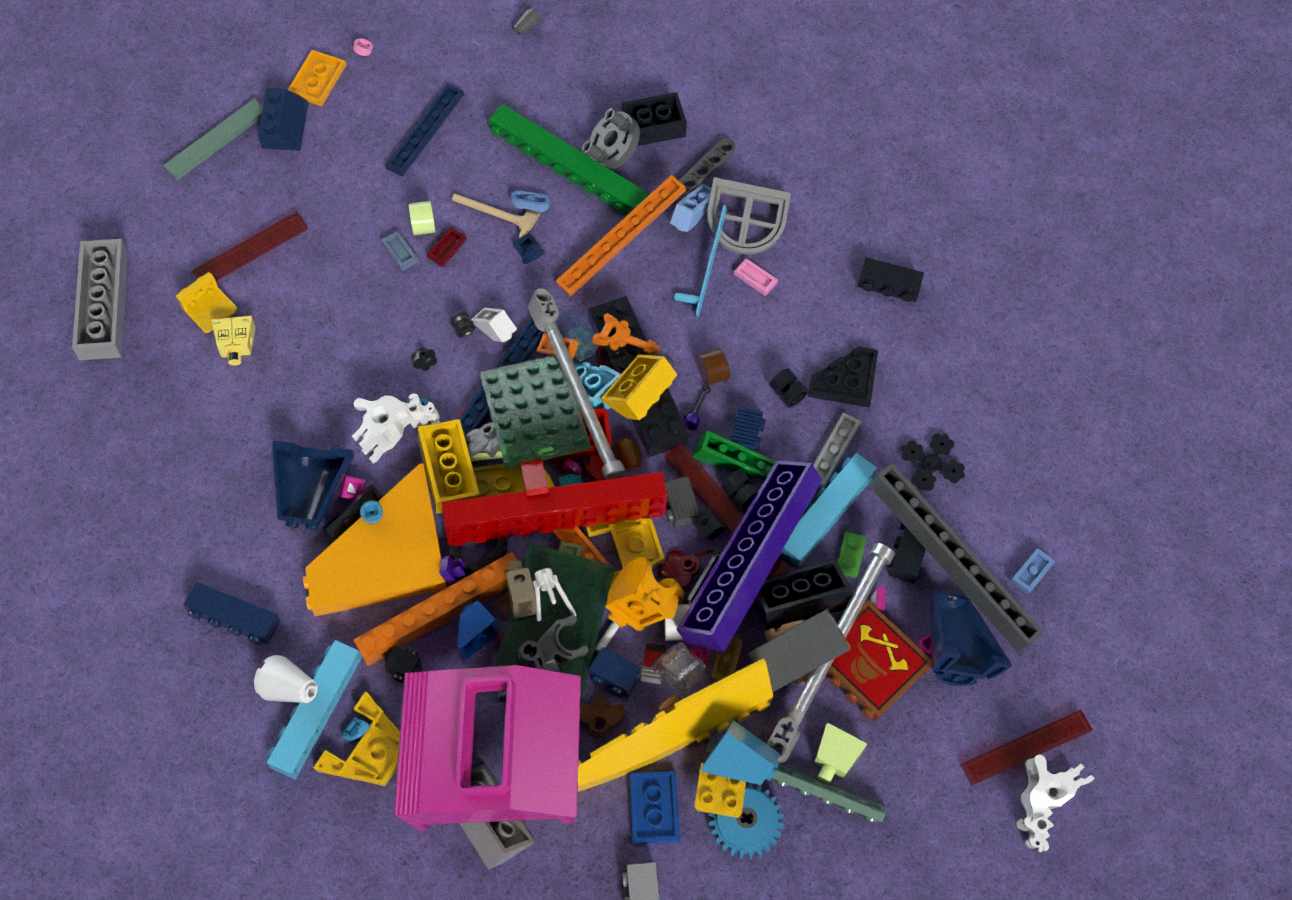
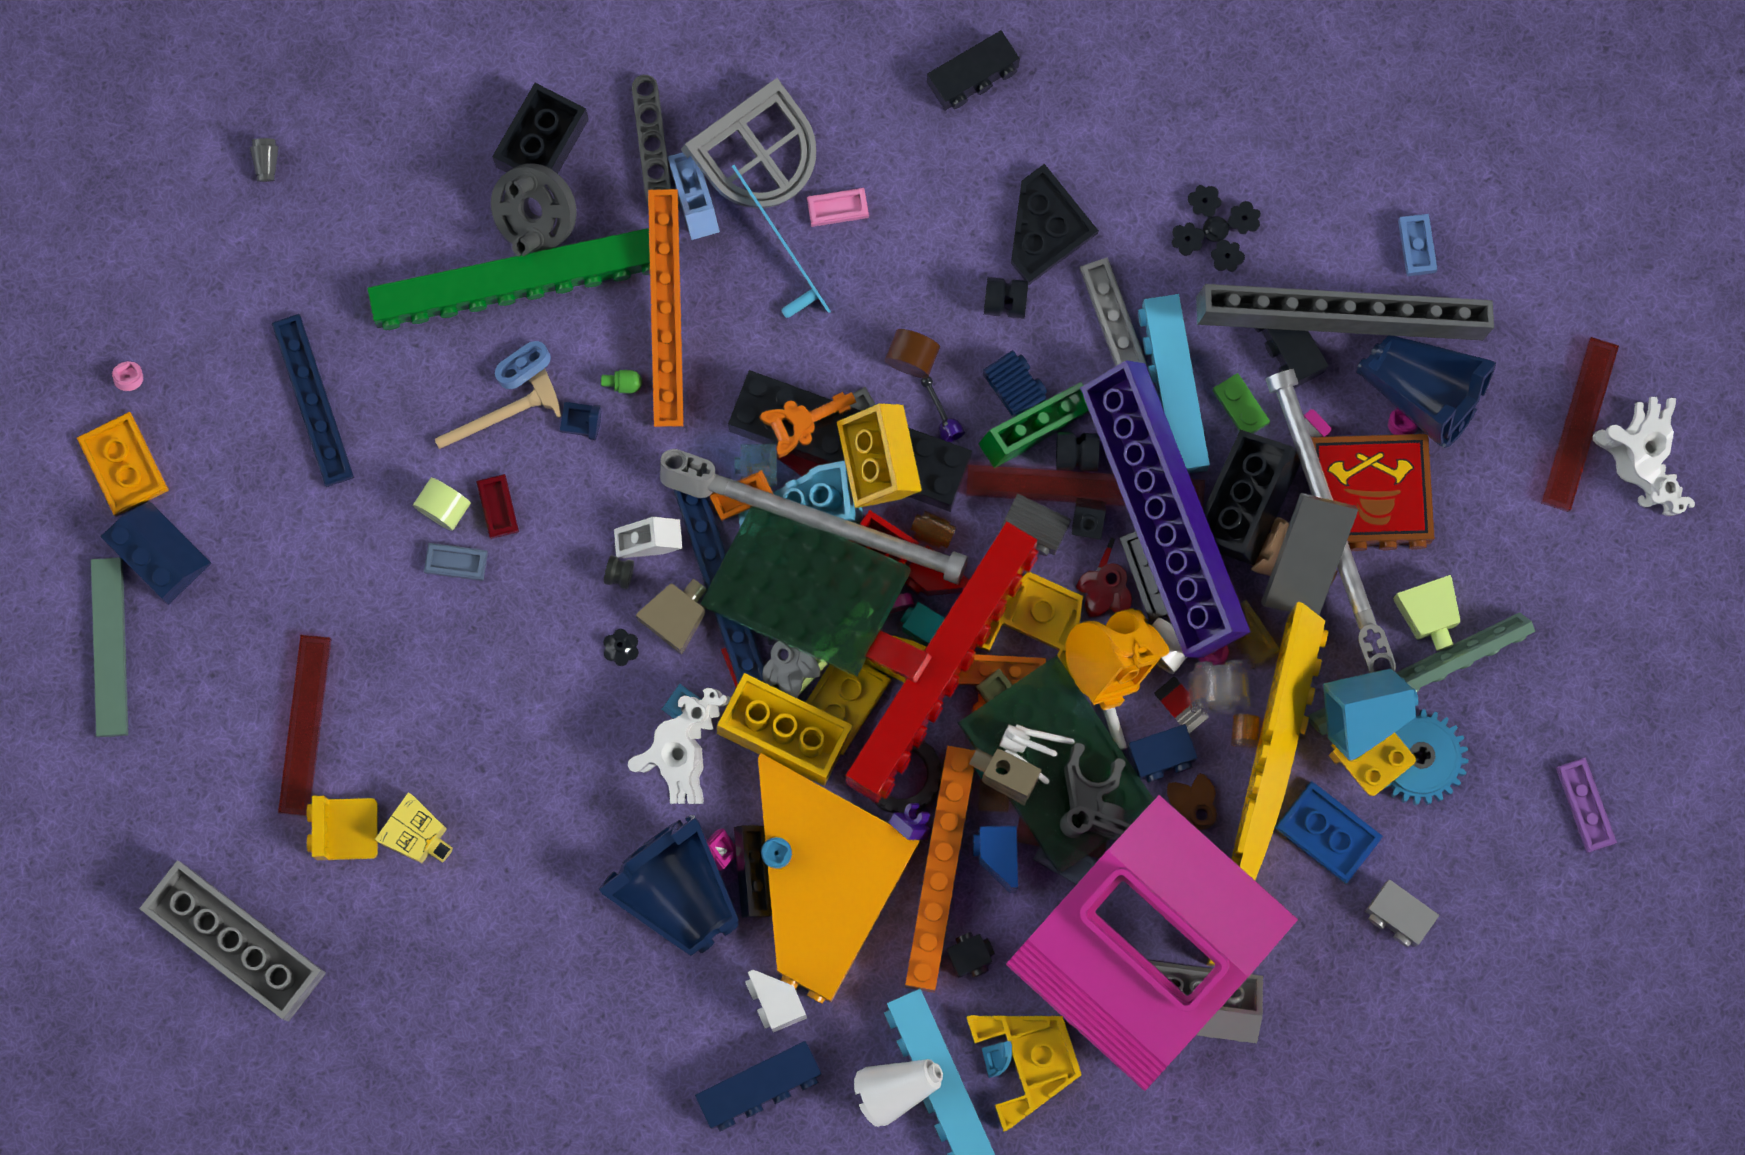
camera: 45 degrees left, 15 degrees up
(285, 581) = (778, 1000): none -> white slope
(463, 367) = (674, 614): none -> dark tan torso
(566, 251) = (623, 381): none -> bright green cylinder

